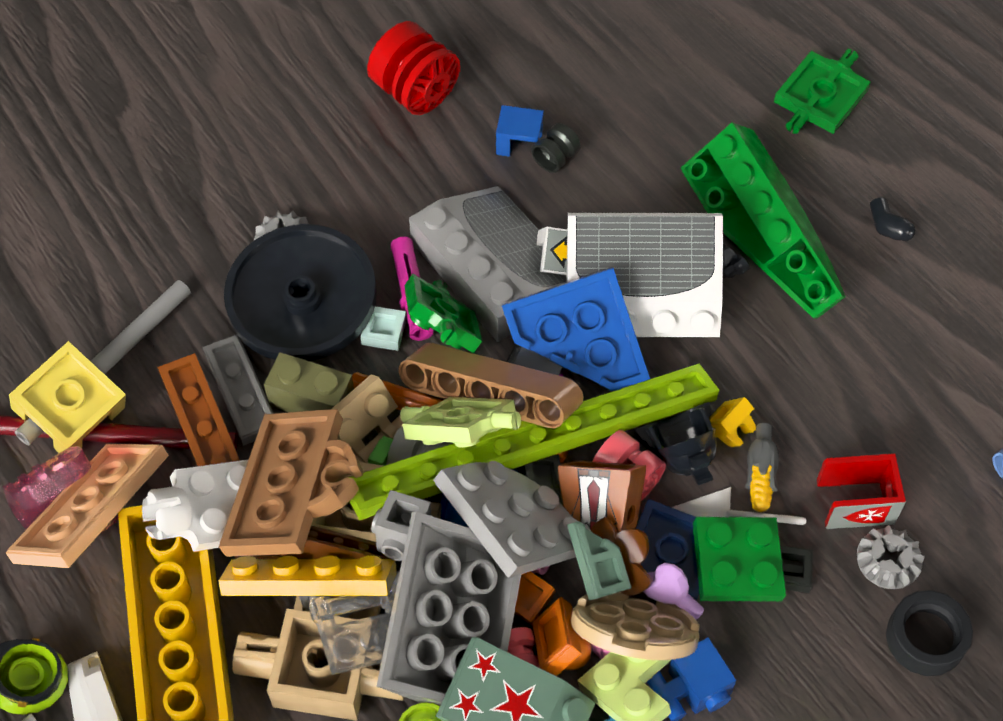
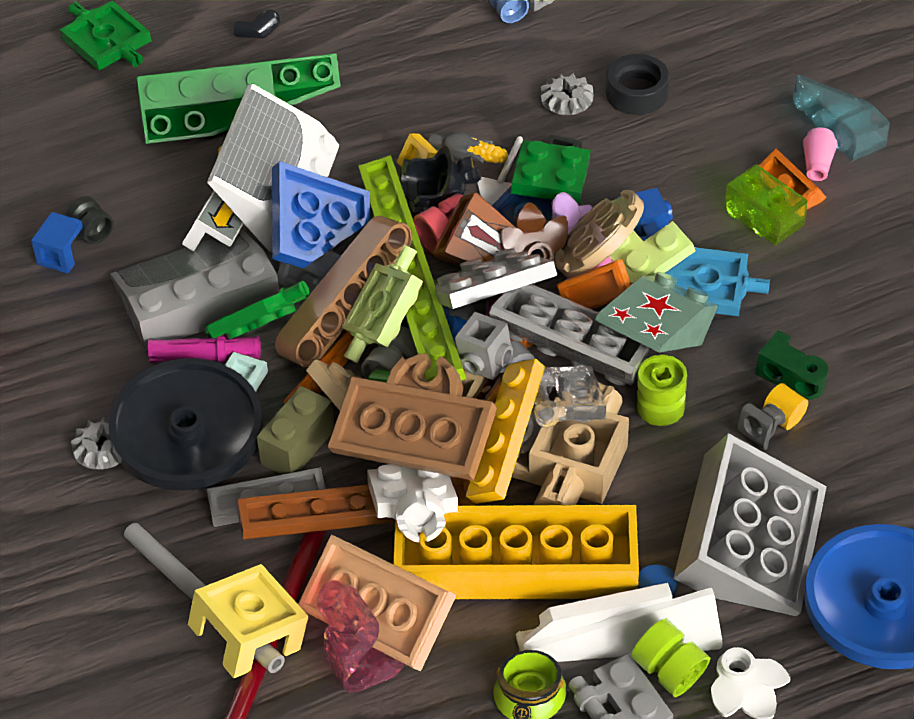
camera: 75 degrees left, 10 degrees down
(599, 562) = (542, 241): sand green tile -> none
(863, 470) = (498, 80): red piece -> none

